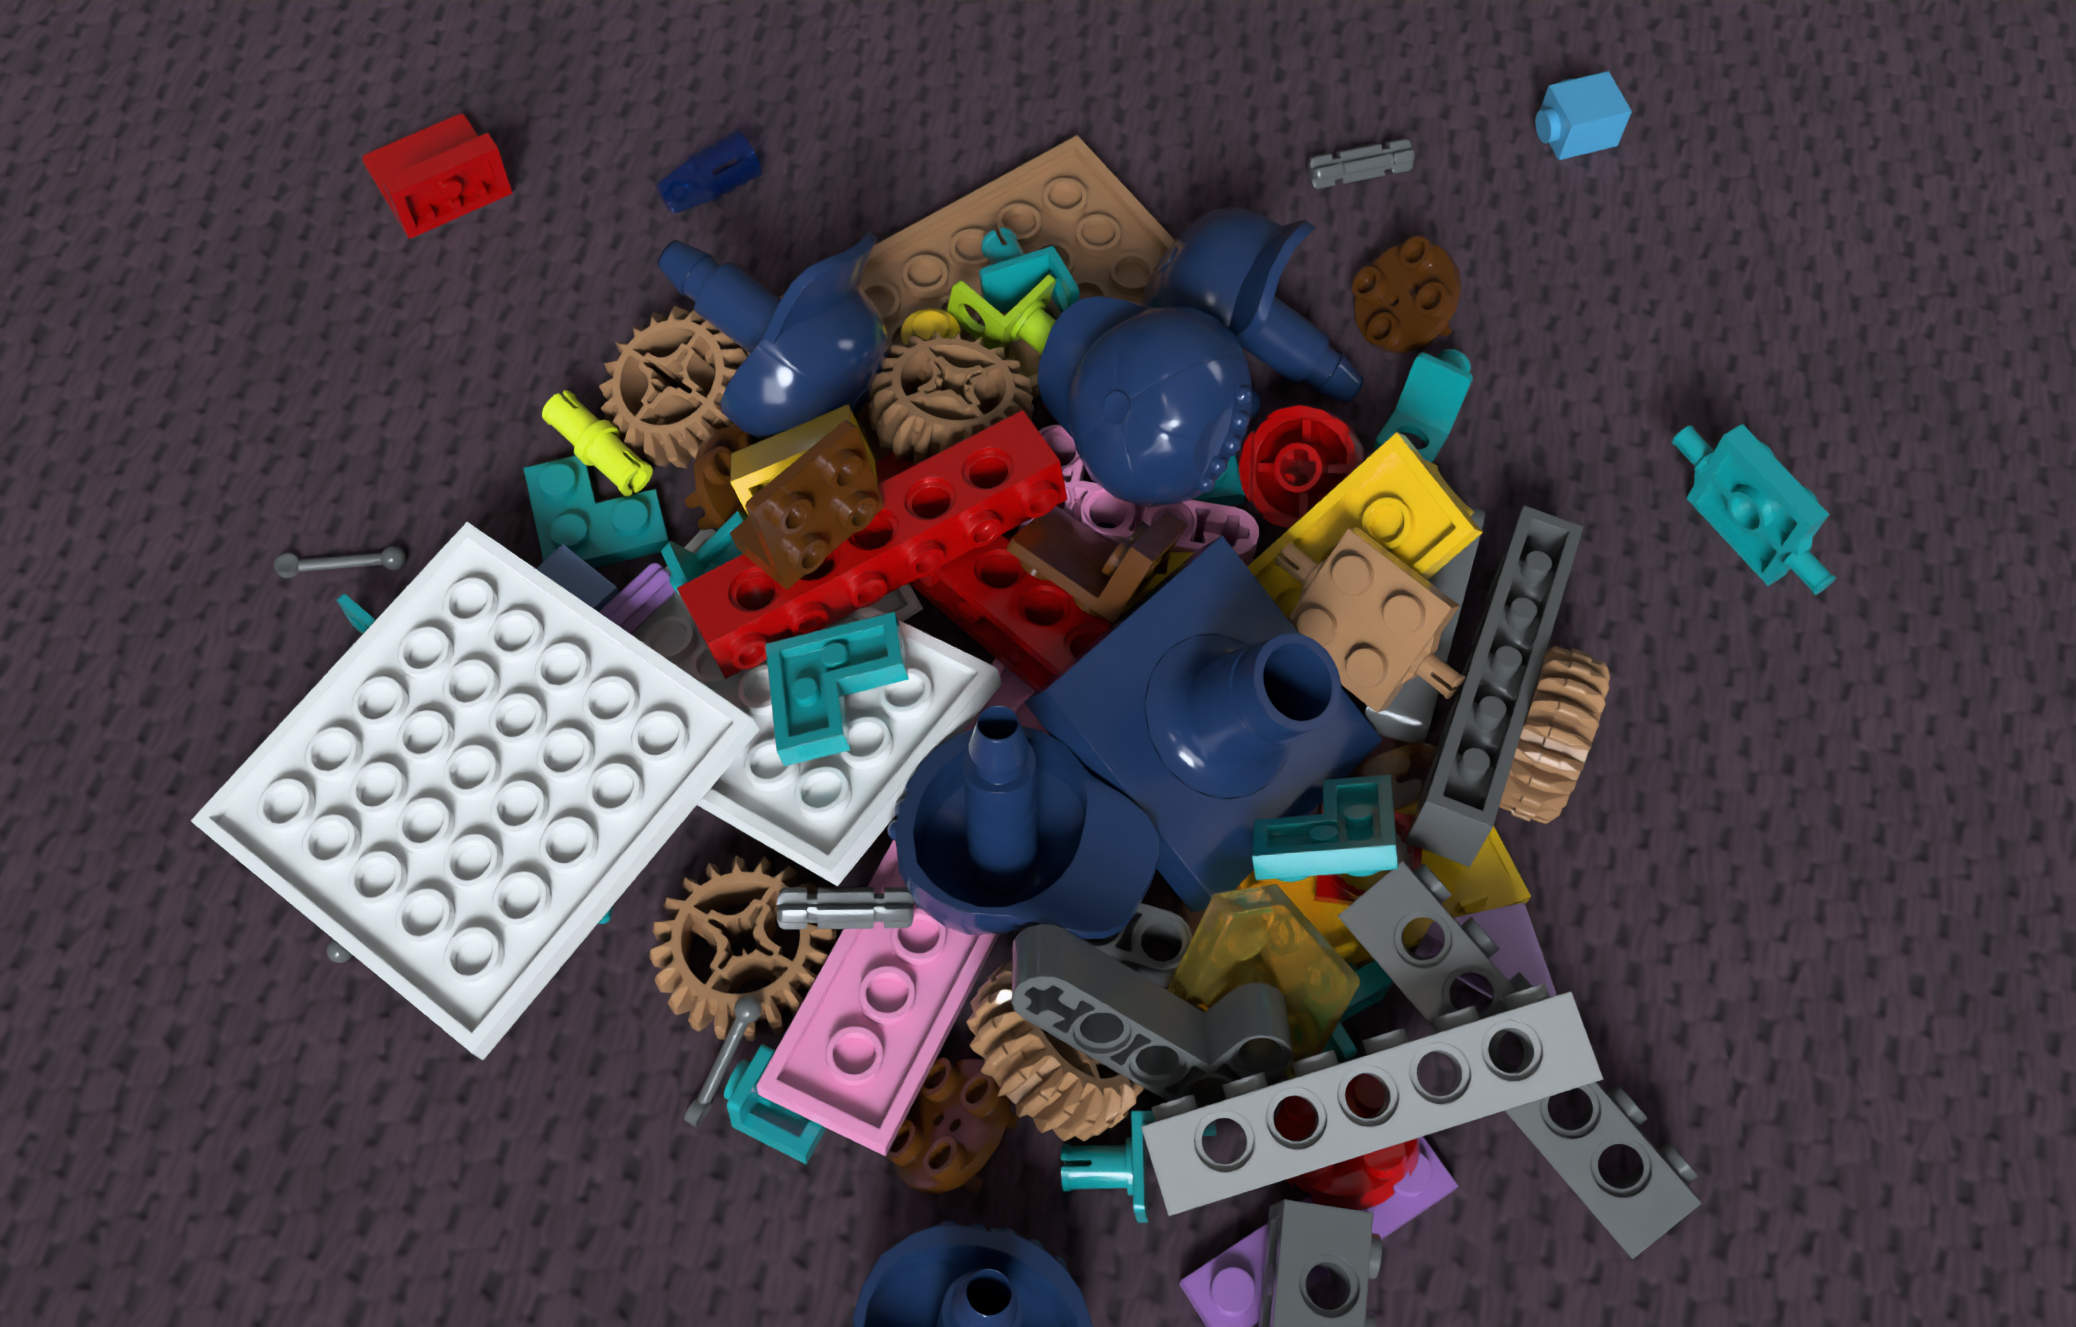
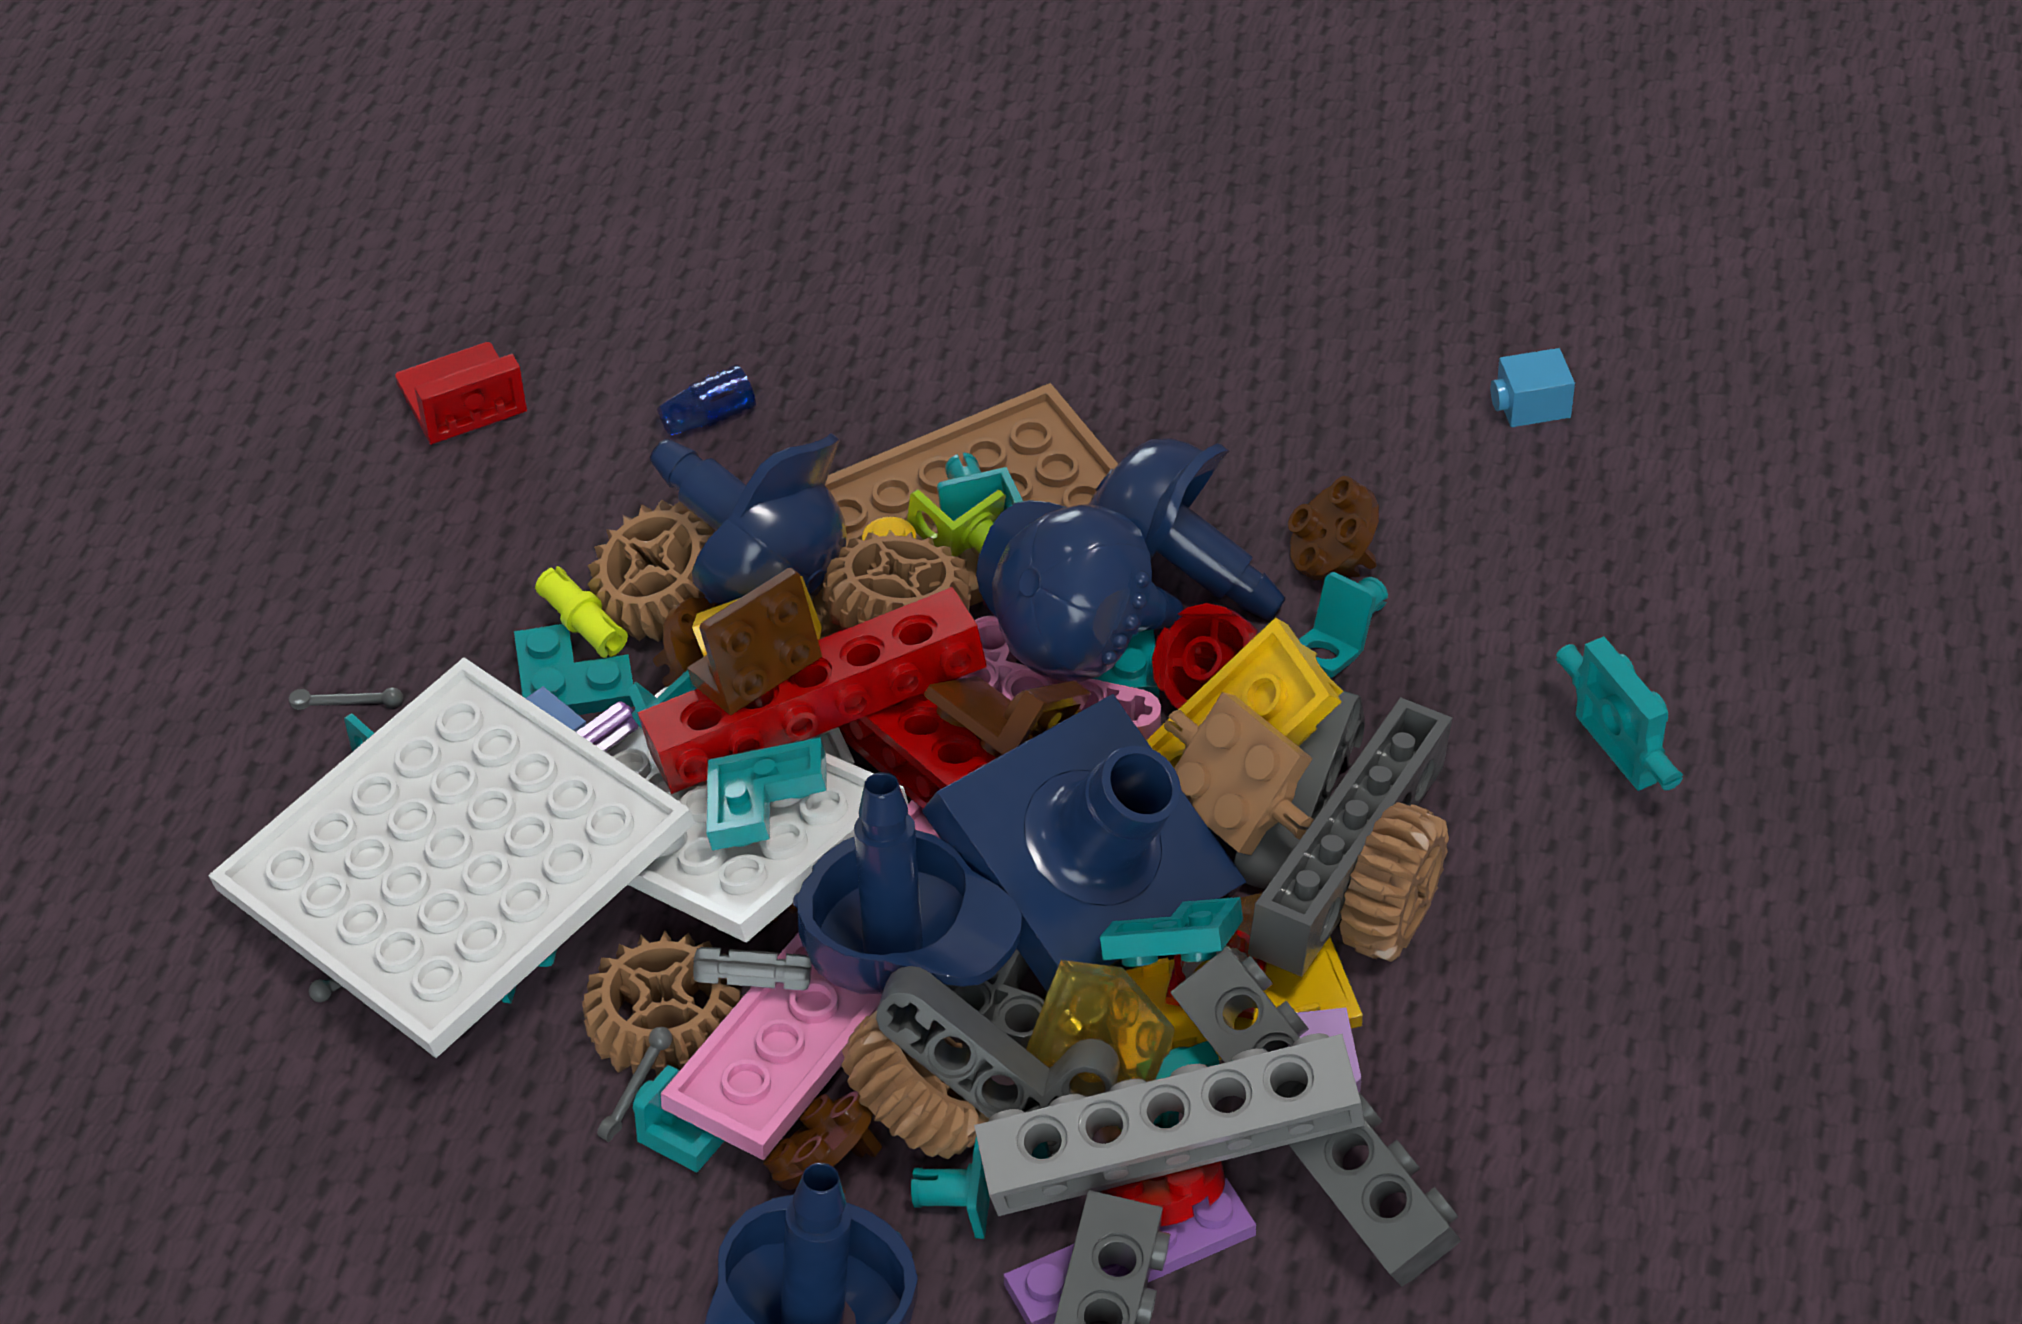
camera: 10 degrees right, 15 degrees down
(1360, 163) = (1317, 420): dark grey axle -> none

